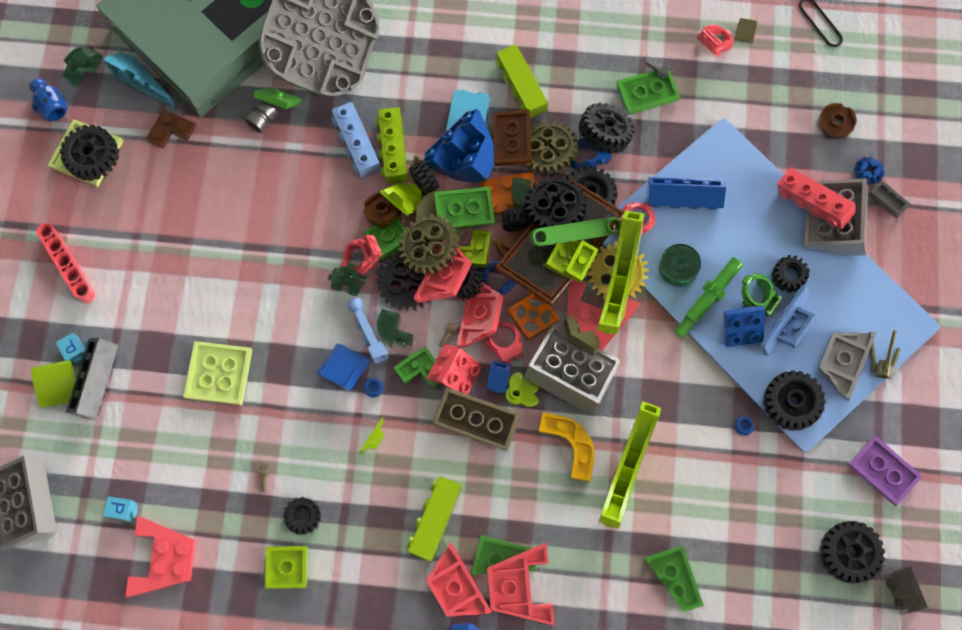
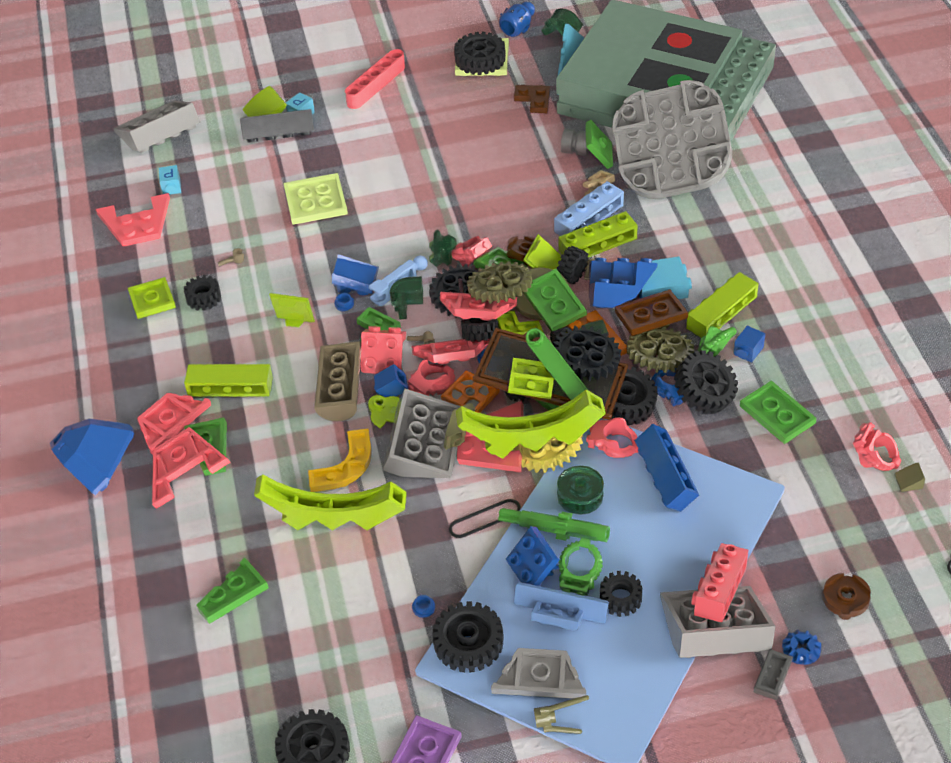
camera: 70 degrees right, 25 degrees down
(319, 117) = (597, 180): none -> tan plate
(564, 106) = (716, 339): none -> bright green piece
(570, 80) = (749, 344): none -> blue brick
(660, 350) = (479, 512): none -> black piece
(661, 72) = (804, 411): dark grey hand -> none

